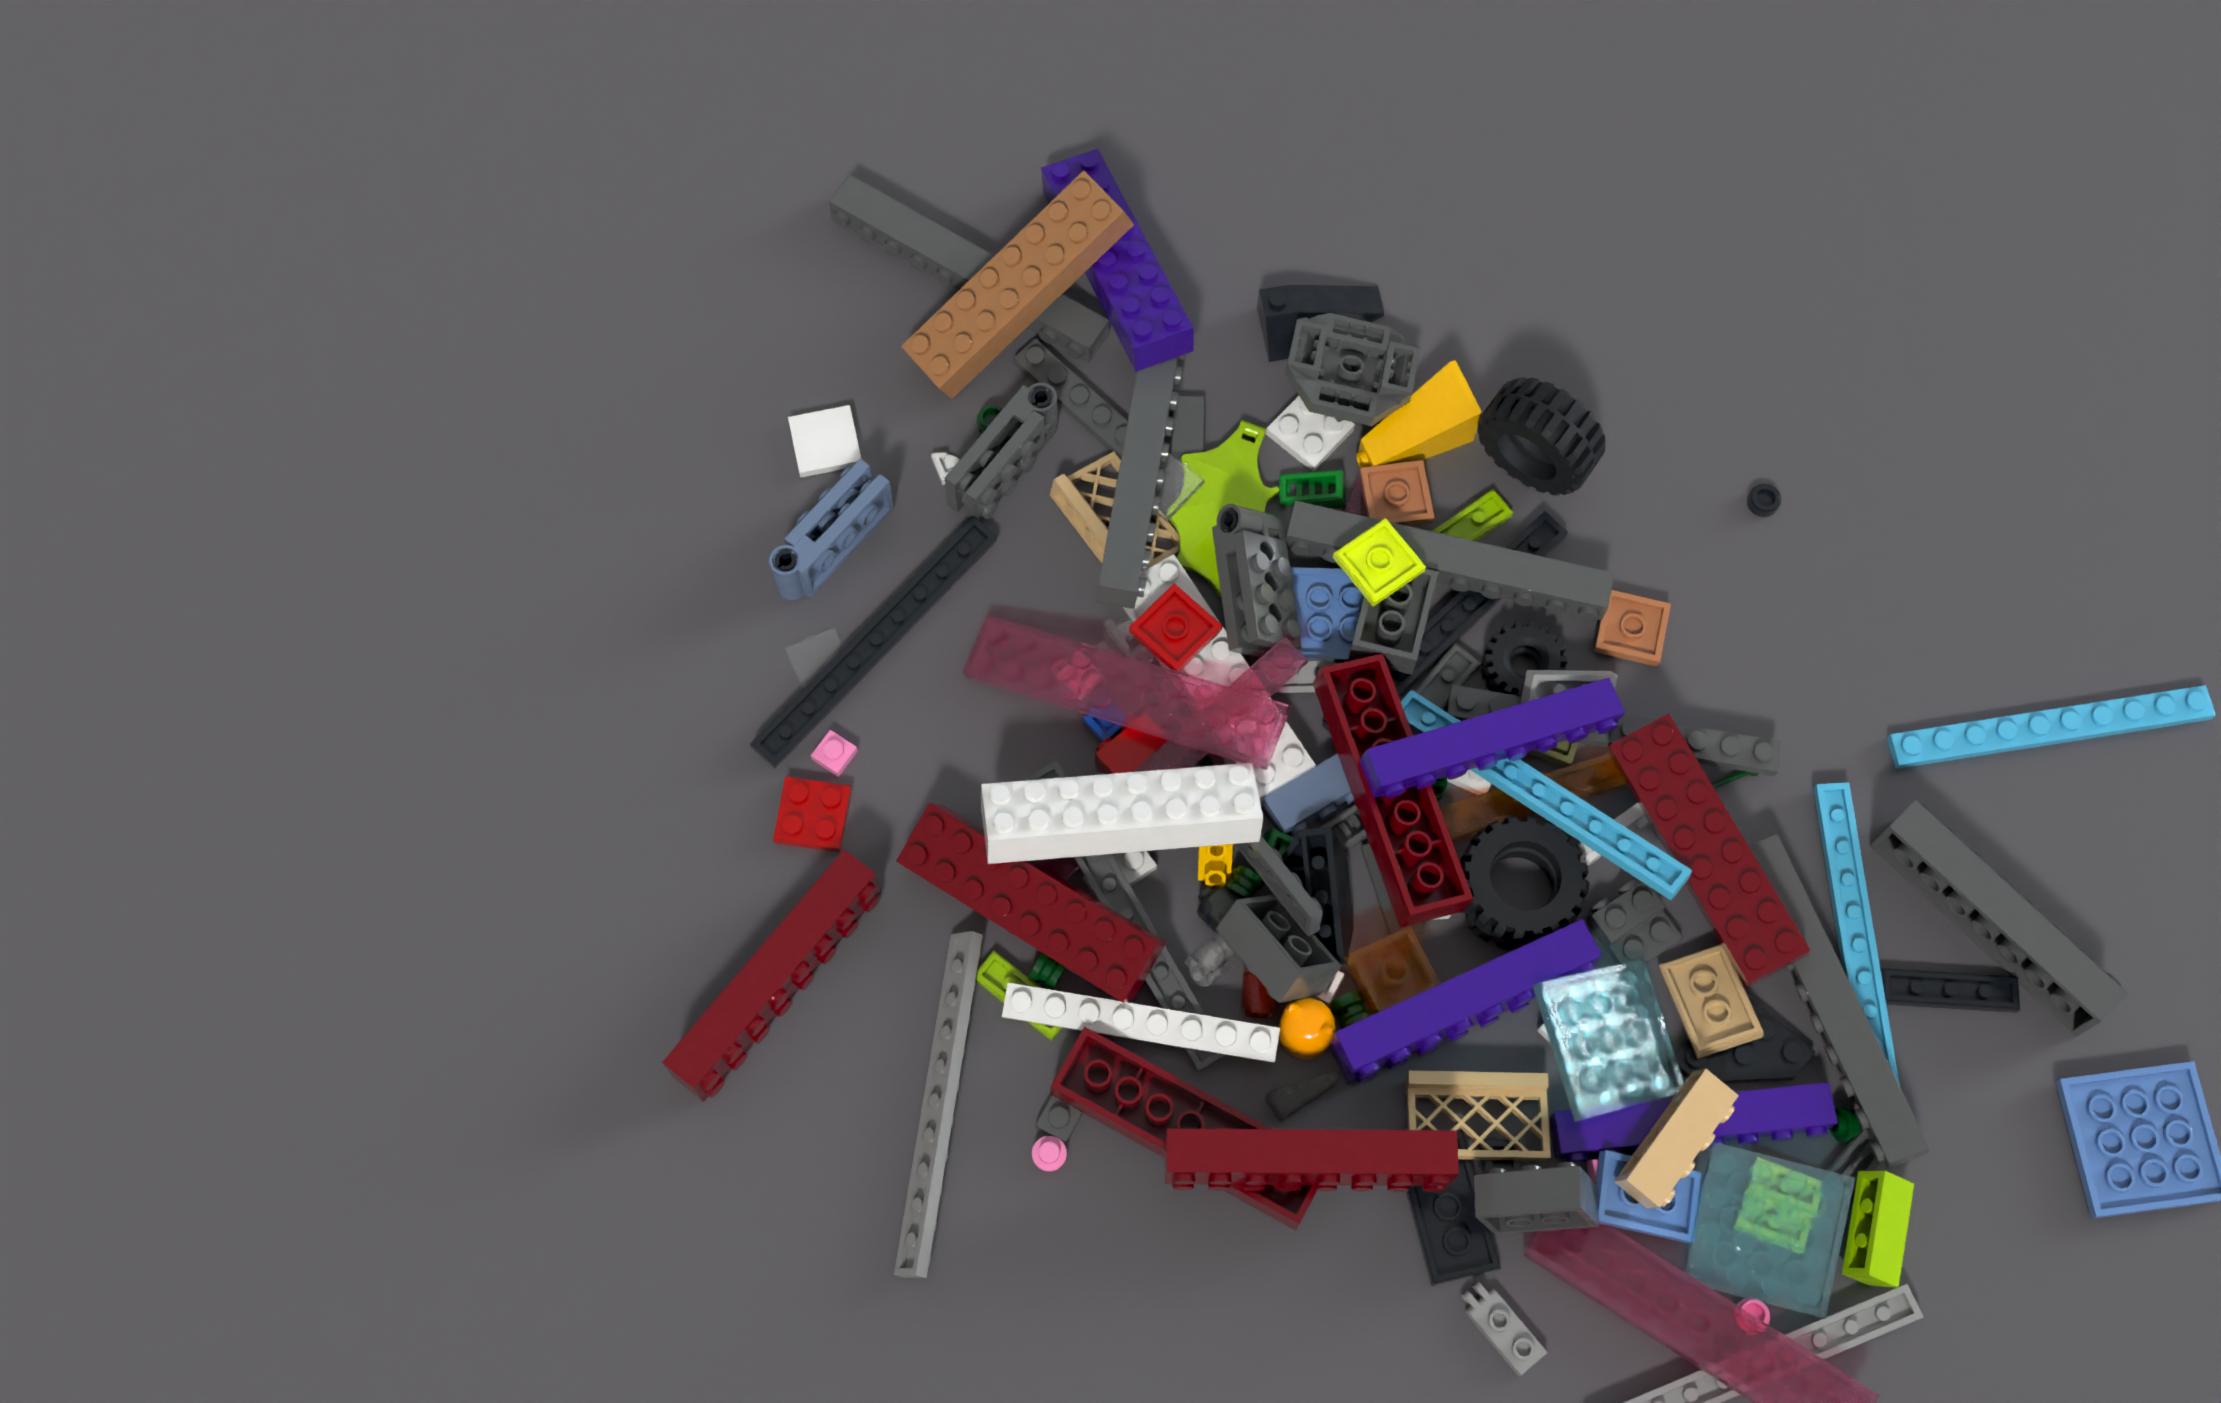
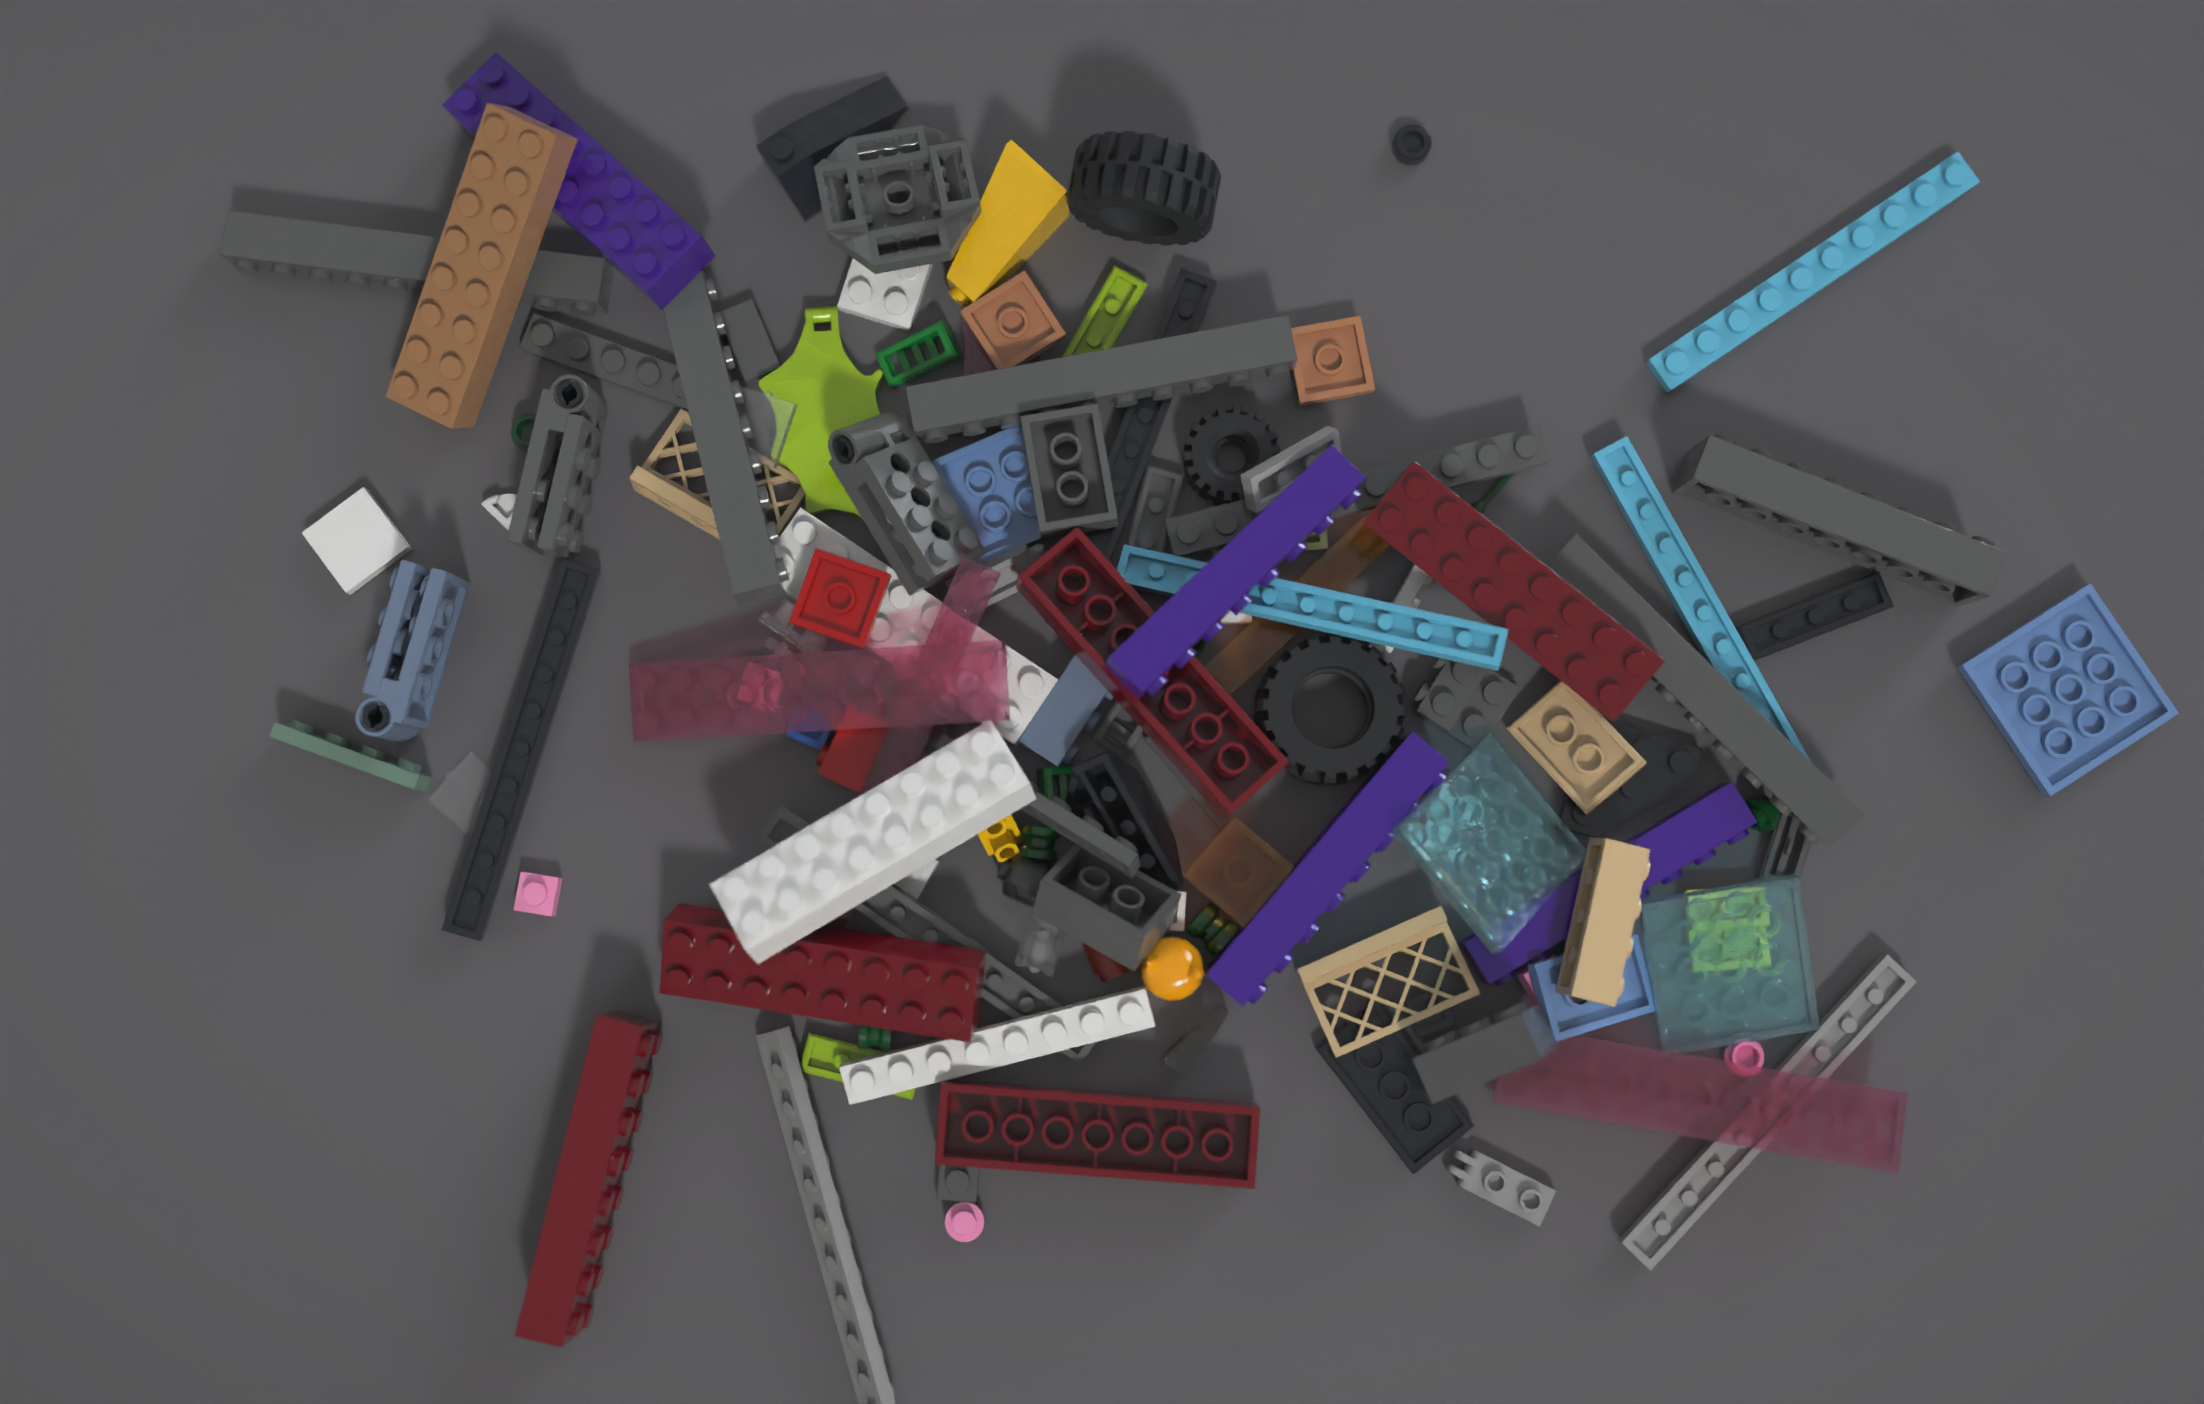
camera: 20 degrees left, 15 degrees up
(737, 580) = (337, 749): none -> sand green plate
(812, 814) = (547, 972): red plate -> none
(1311, 1158) = (1238, 1128): dark red brick -> none
(1379, 562) = (1028, 423): neon yellow tile -> none
(1878, 1229) = (1838, 912): lime brick -> none

